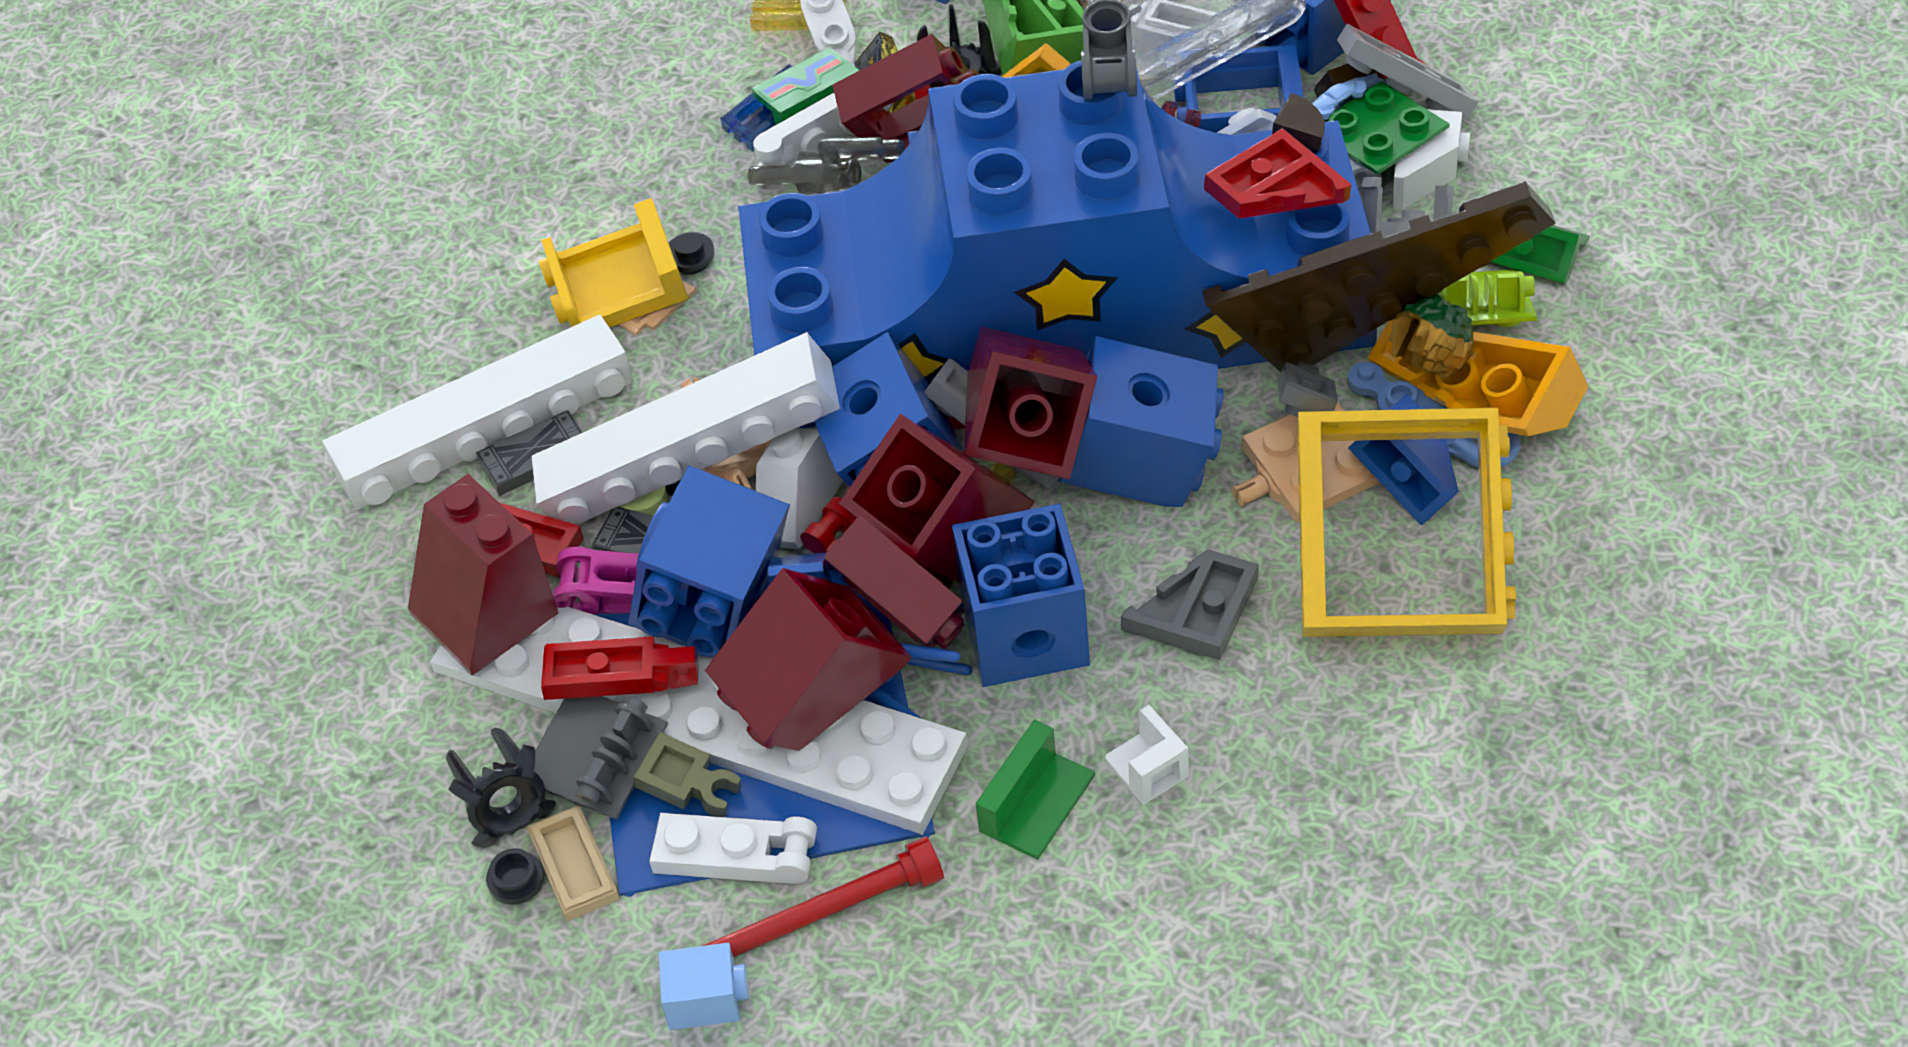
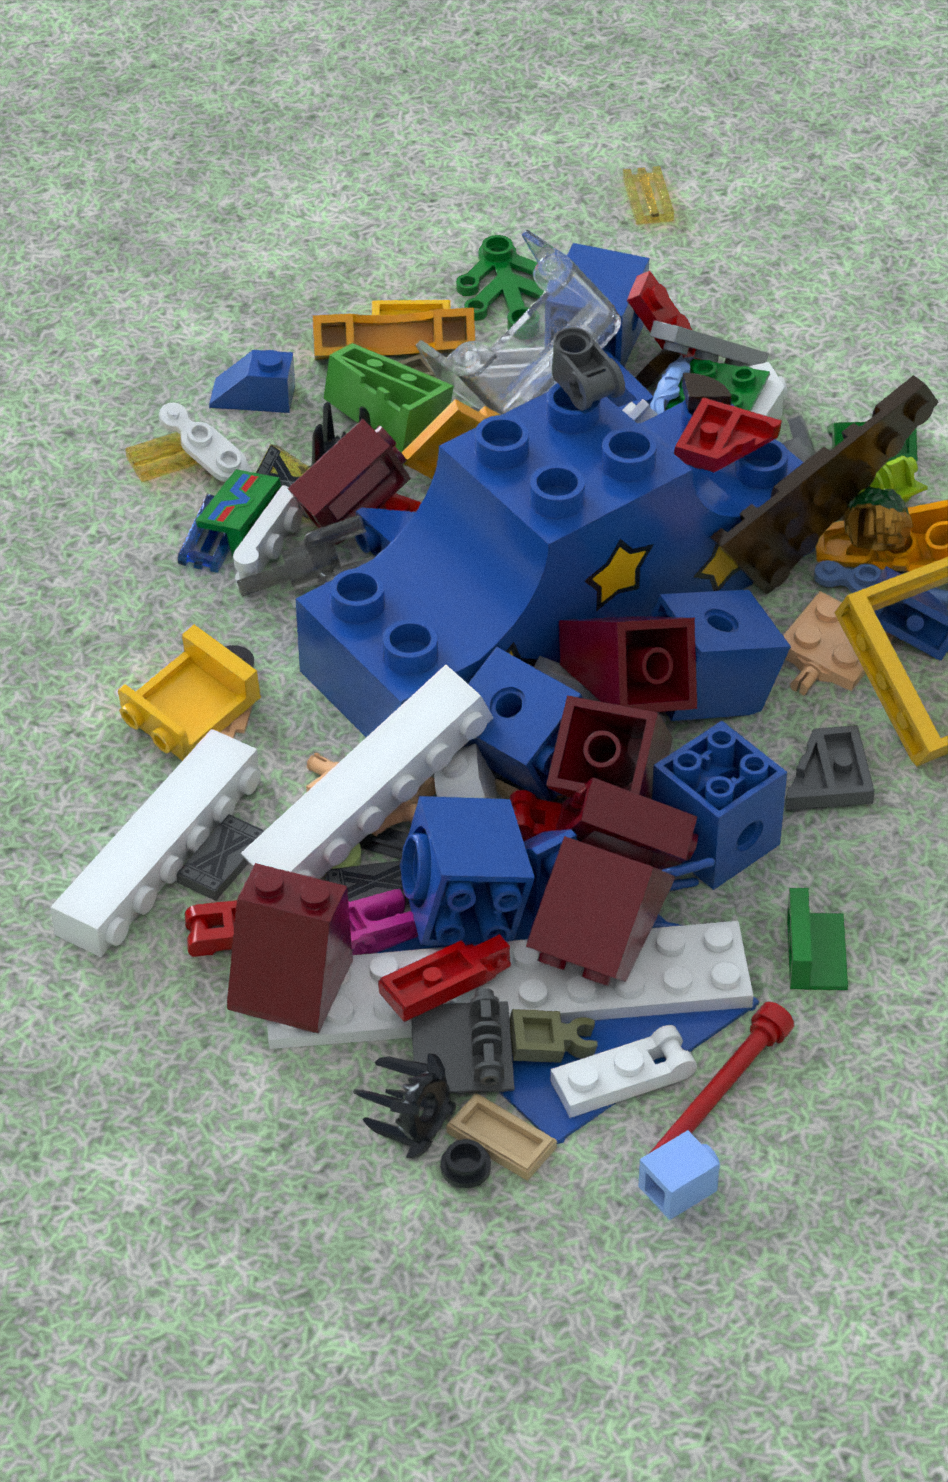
camera: 35 degrees left, 5 degrees down
(1152, 759) = (879, 884): white panel -> none
(1305, 389) = (817, 590): dark grey hinge -> none

